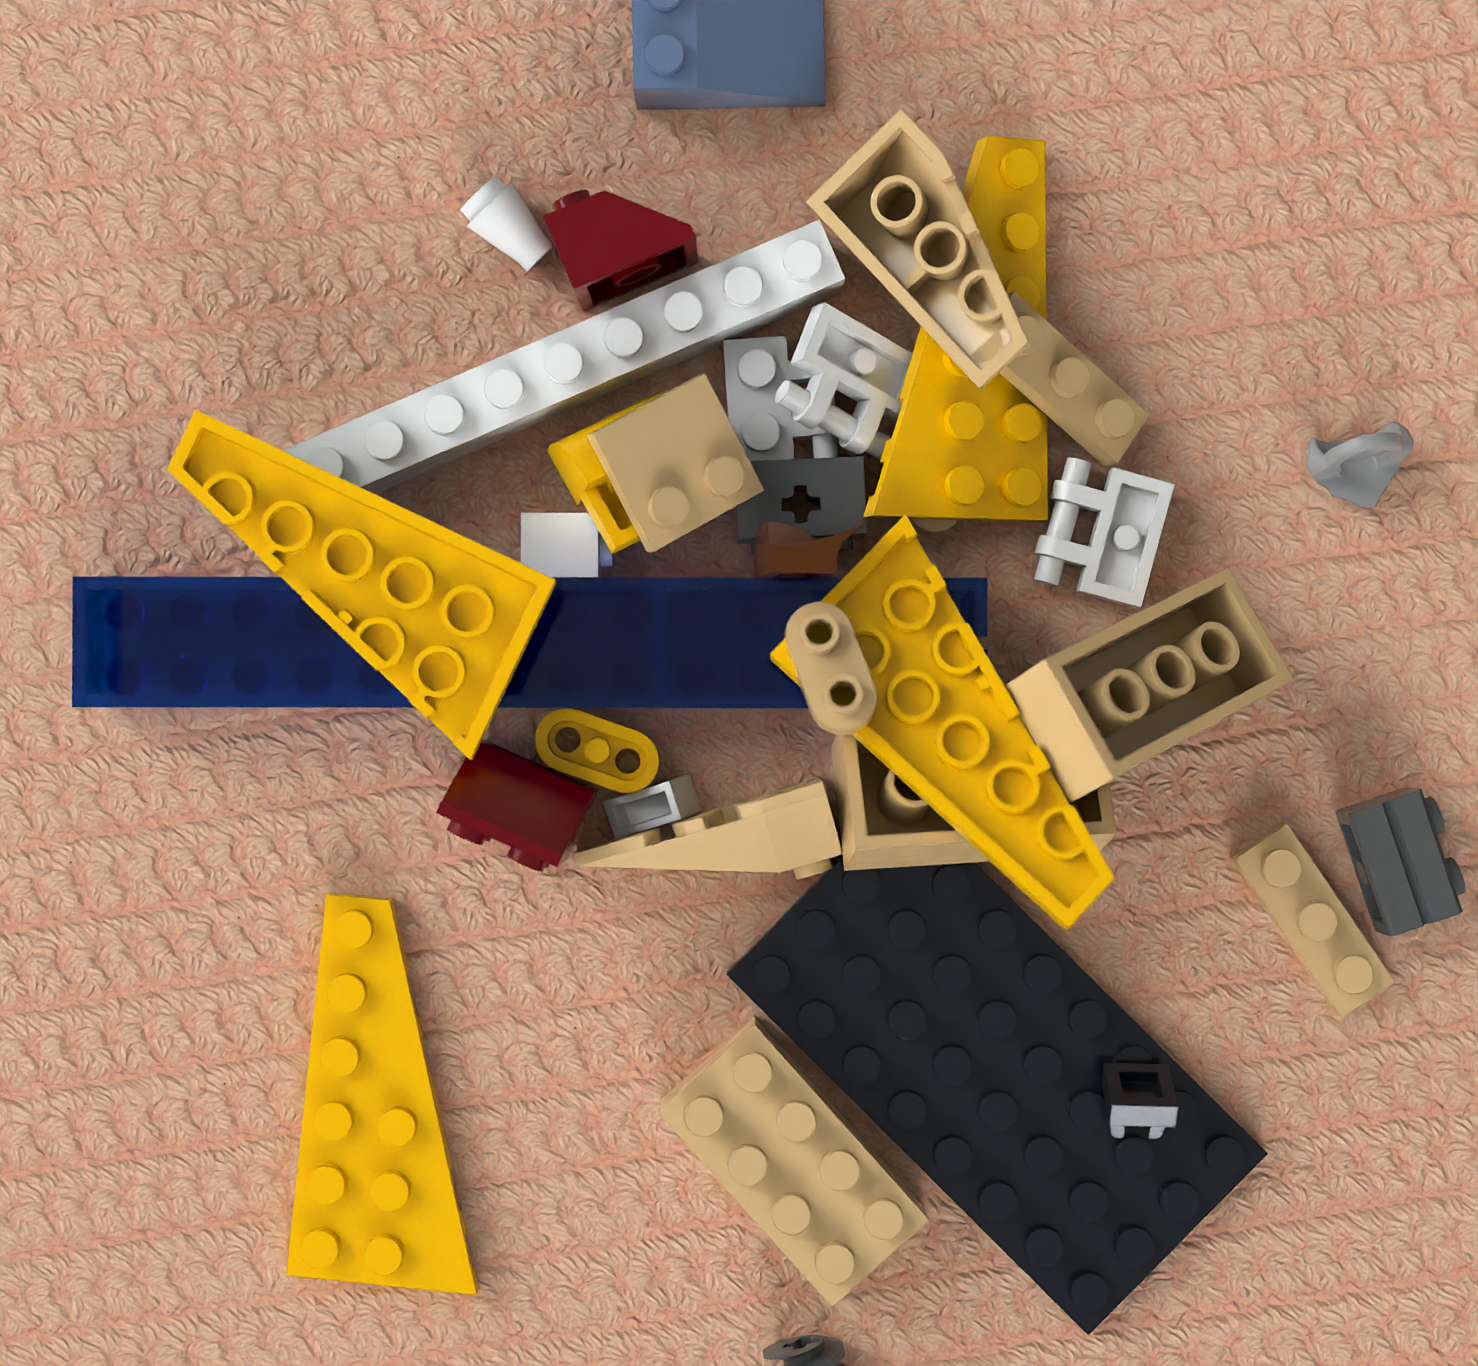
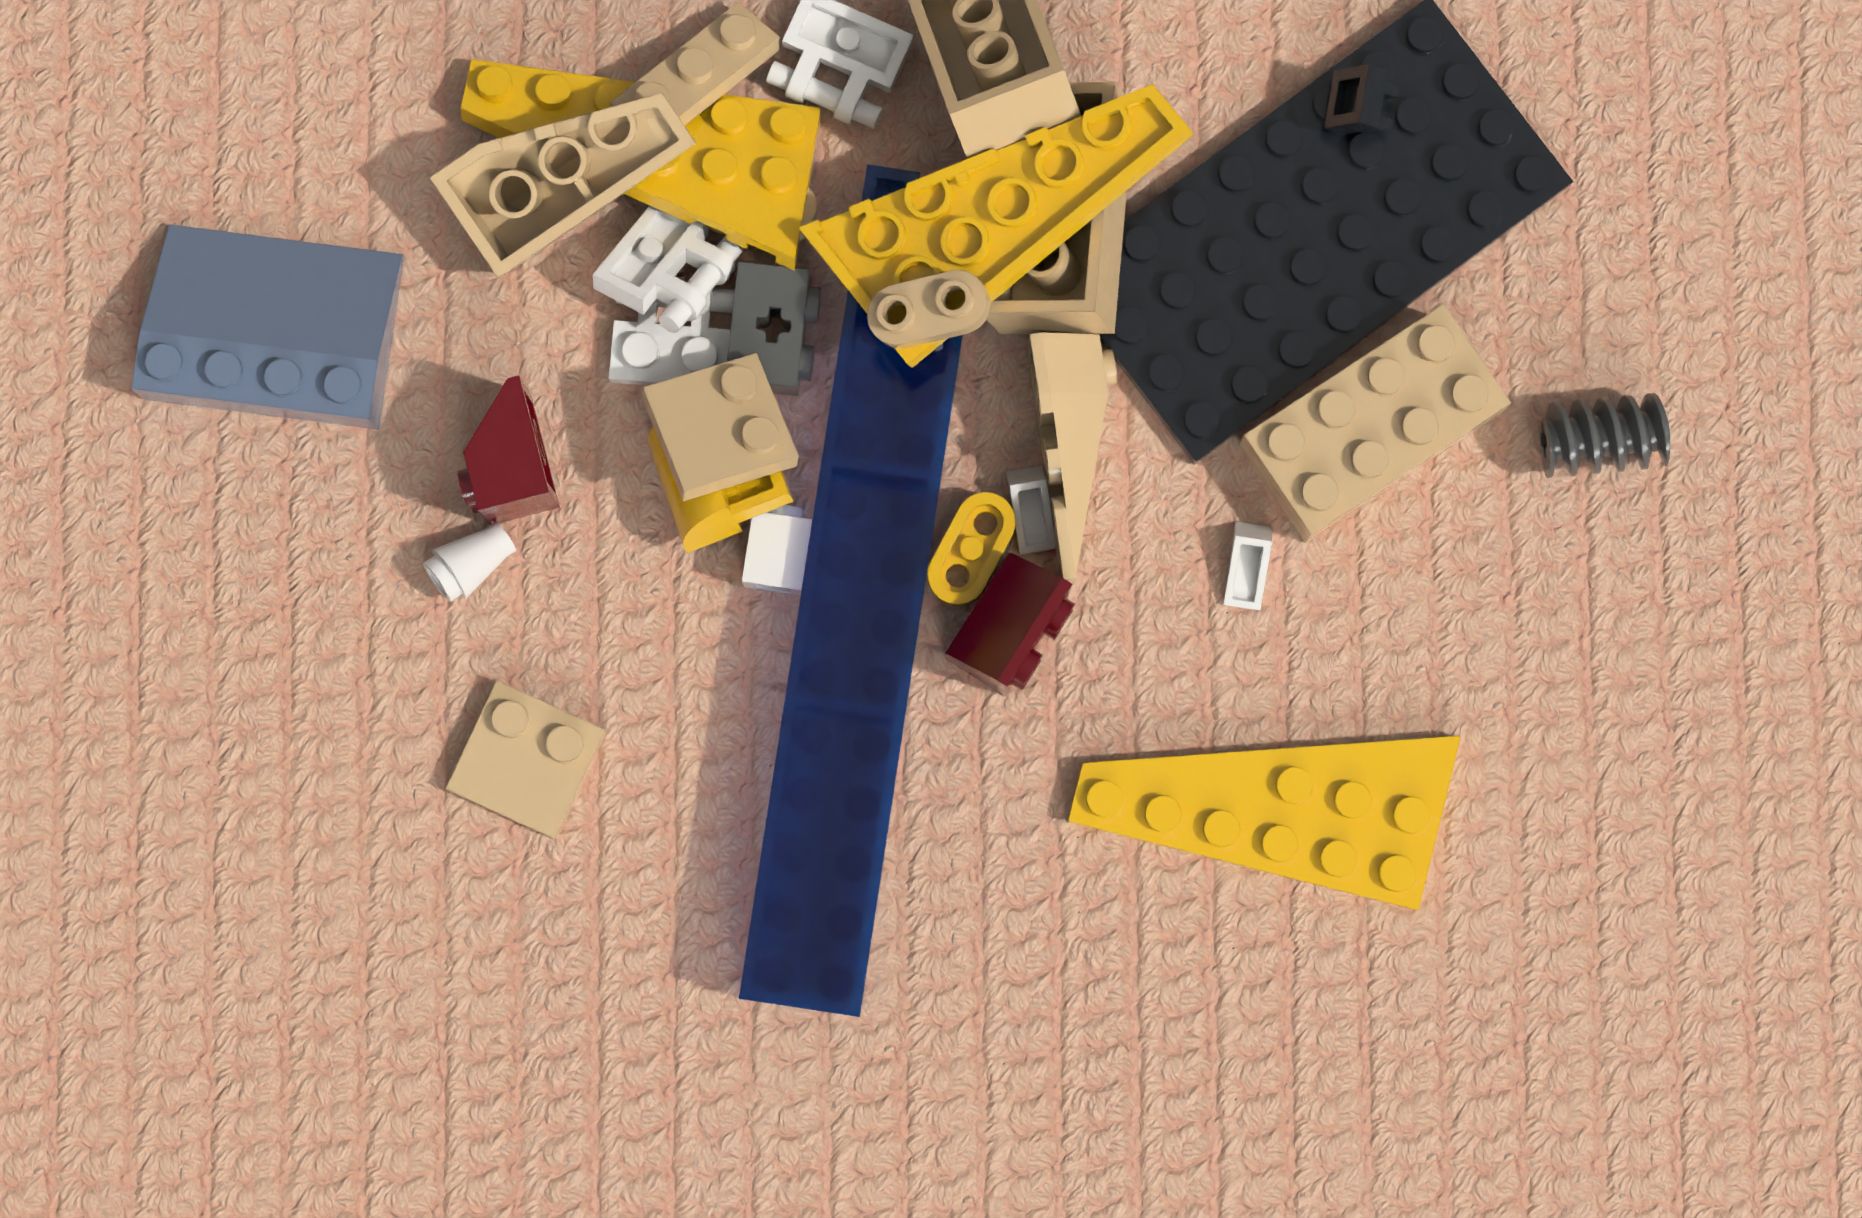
camera: 85 degrees left, 5 degrees down
(310, 317) = (526, 759): none -> tan plate
(399, 589) = (797, 691): yellow wing -> none
(580, 362) = (622, 552): white brick -> none
(627, 1044) = (1248, 565): none -> white piece
(793, 553) = (817, 333): reddish brown slope -> none

